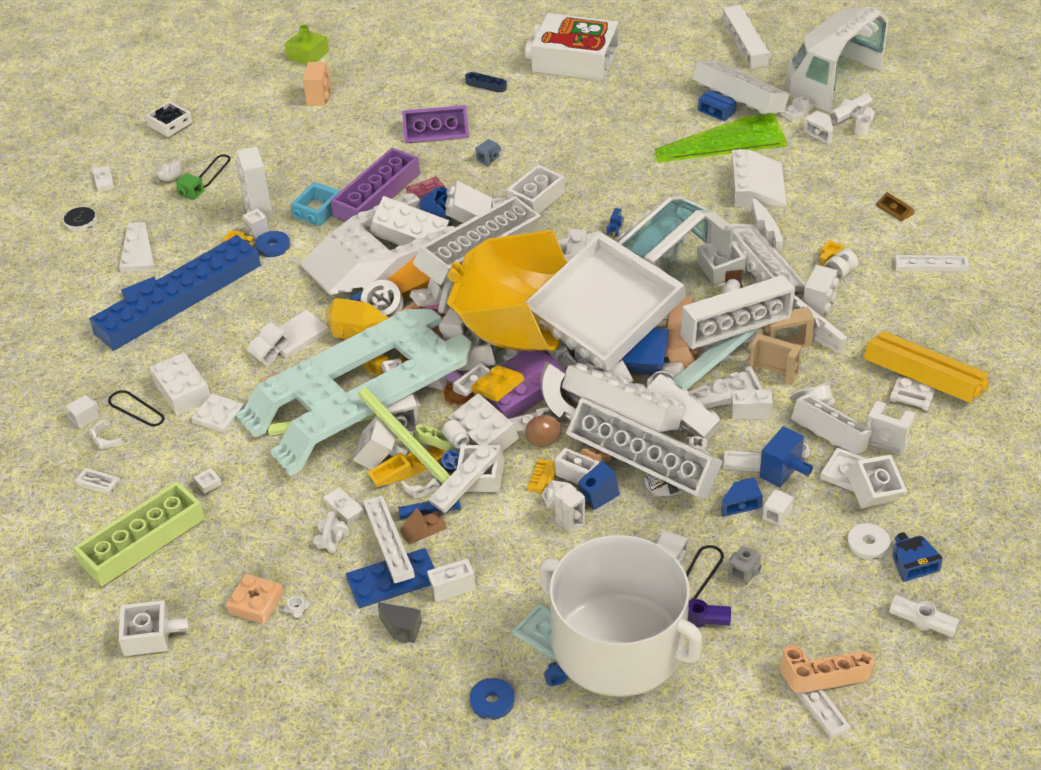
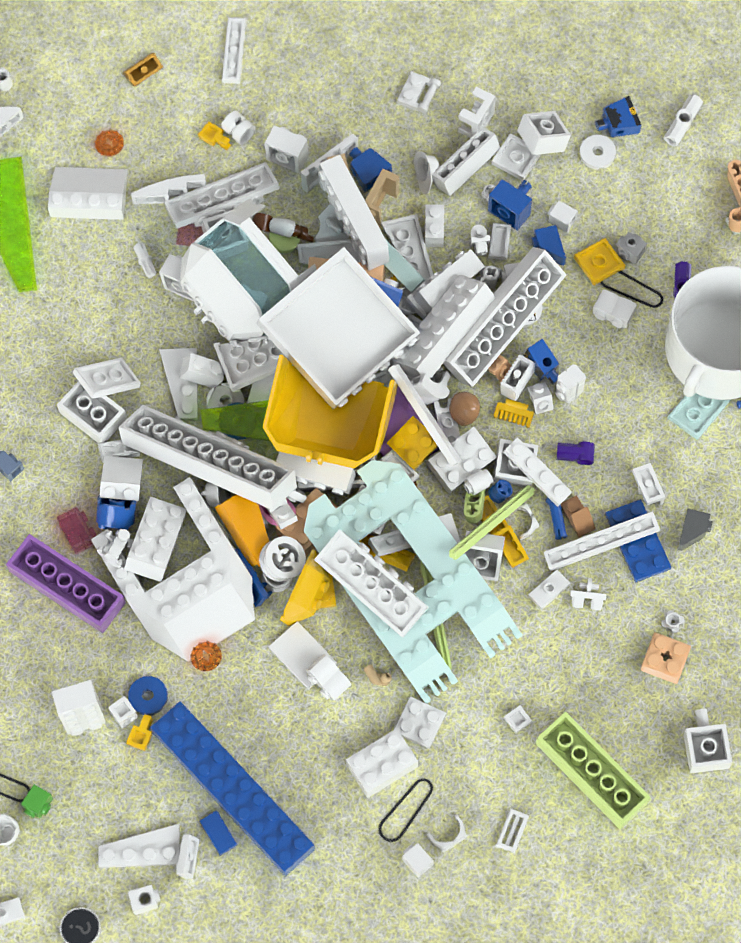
camera: 90 degrees left, 25 degrees up
(92, 247) = (135, 896): none -> white brick
(122, 270) = (188, 856): none -> white plate
(297, 274) = (202, 663): none -> clear orange gear
(313, 216) = (70, 638): medium azure window -> none
(343, 345) = (372, 582): none -> white plate
(394, 193) = (117, 546): none -> white piece
(494, 525) = (581, 453): none -> dark purple piece
(516, 372) = (424, 415): none -> white tile
(566, 194) = (106, 377): none -> white tile
(615, 221) = (148, 334): blue plate -> none
(725, 539) = (599, 261): none -> yellow plate
(732, 436) = (479, 240): none -> white hips
(815, 356) = (367, 167): none -> blue torso
(816, 194) = (106, 149): none -> clear orange gear
(927, 366) = (392, 74): yellow brick -> none

